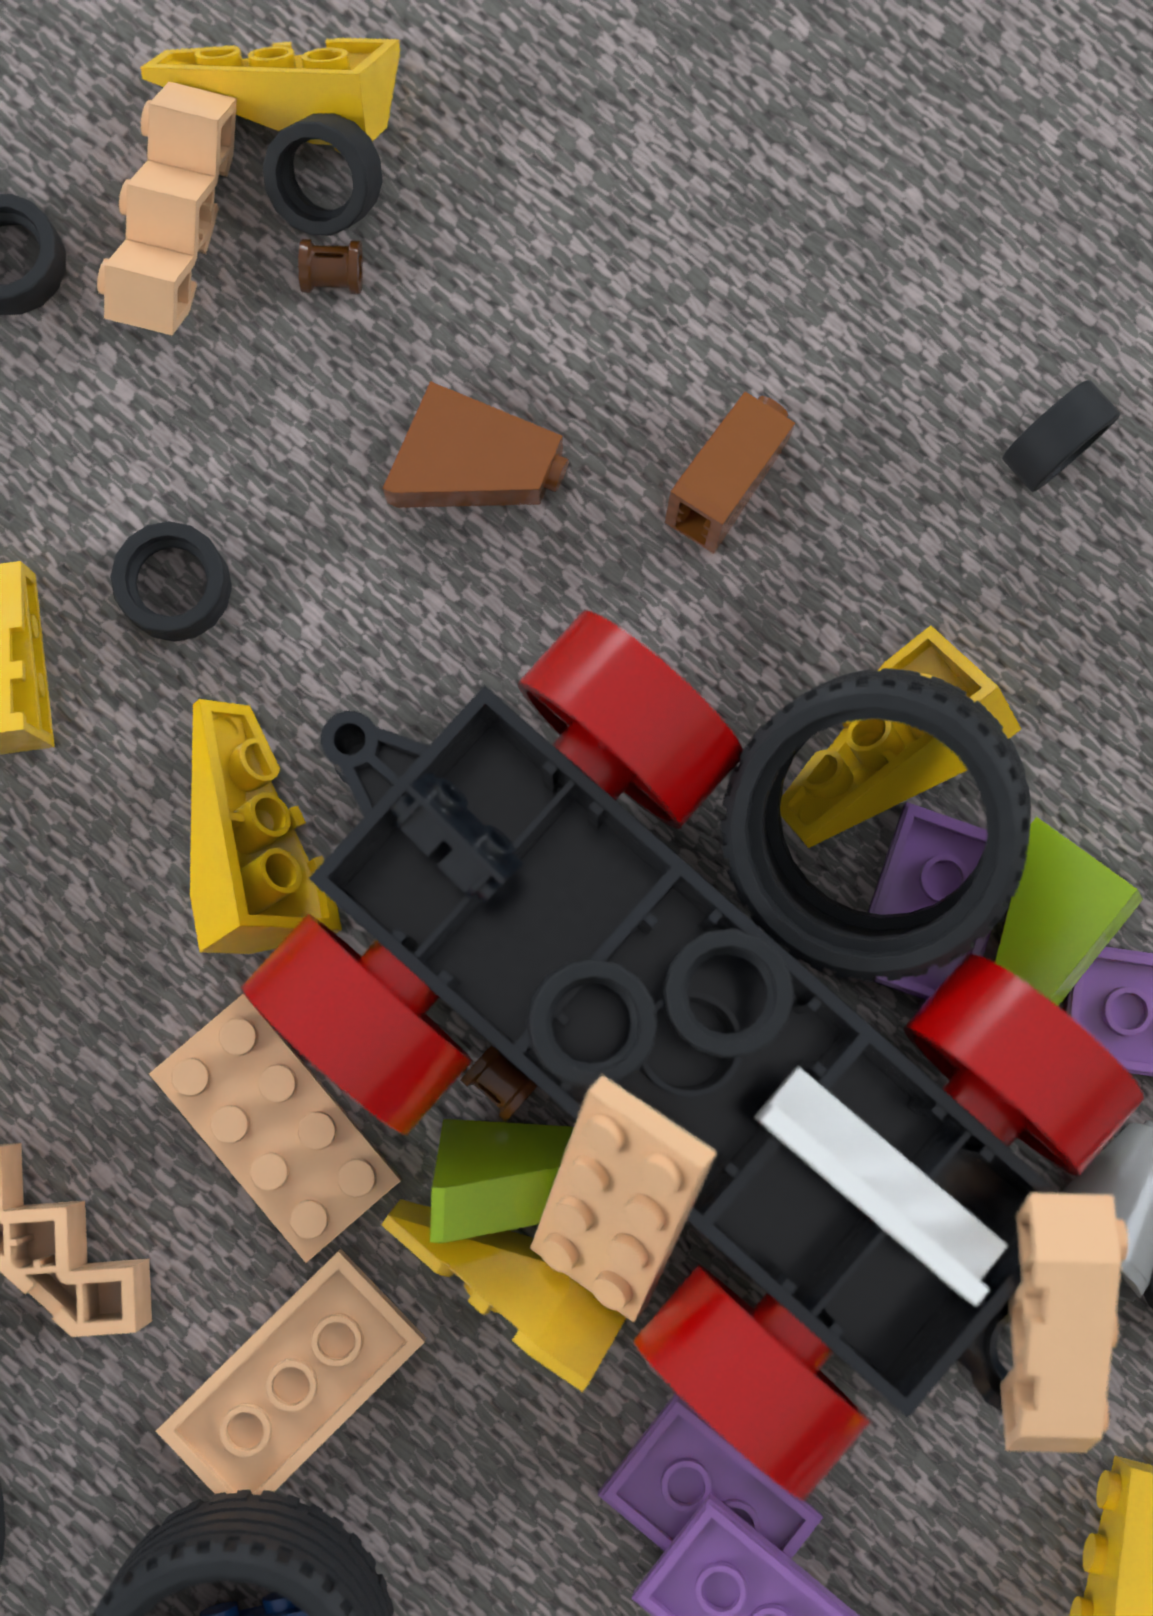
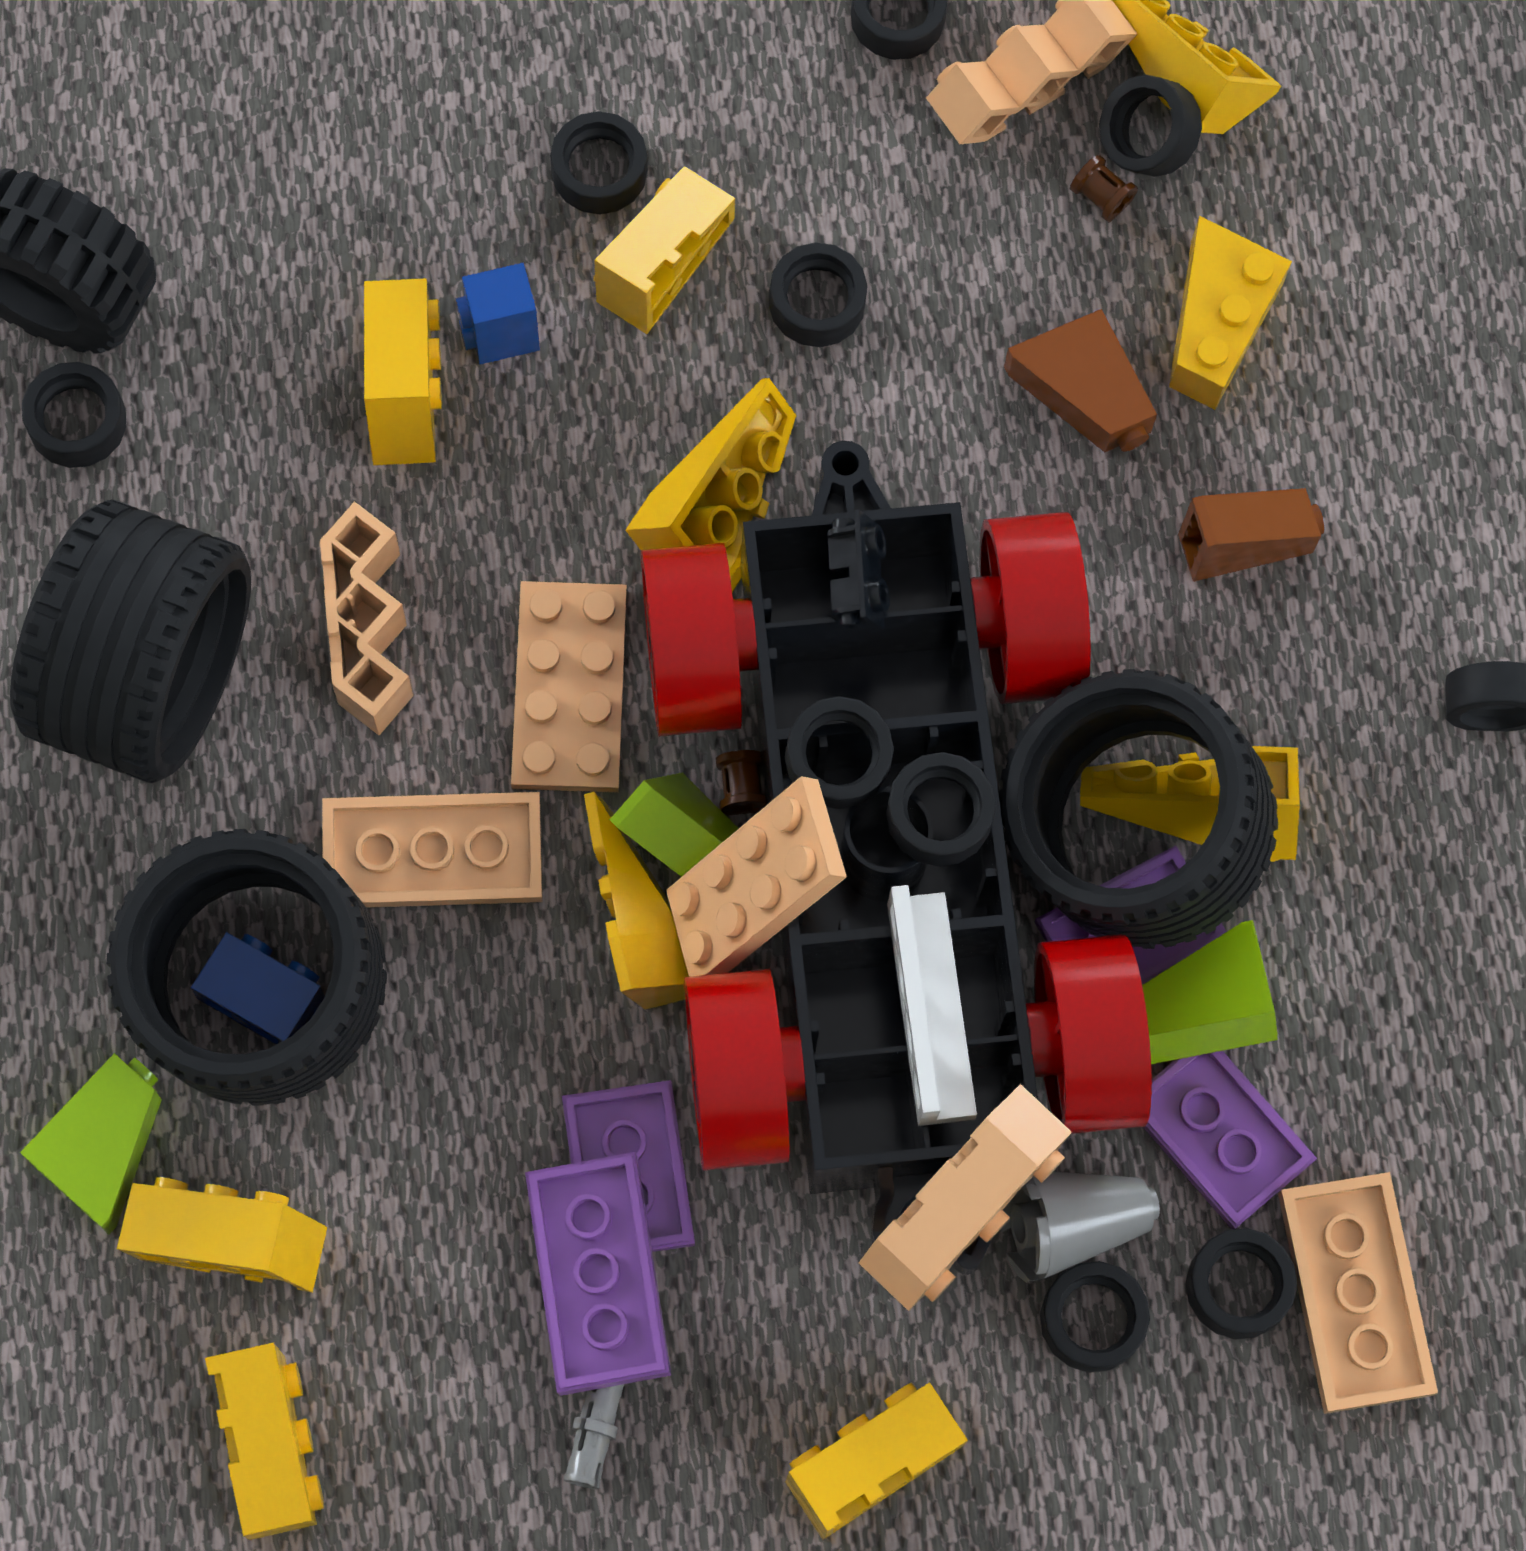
camera: 40 degrees right, 10 degrees down
(530, 288) = (1222, 308): none -> yellow wedge

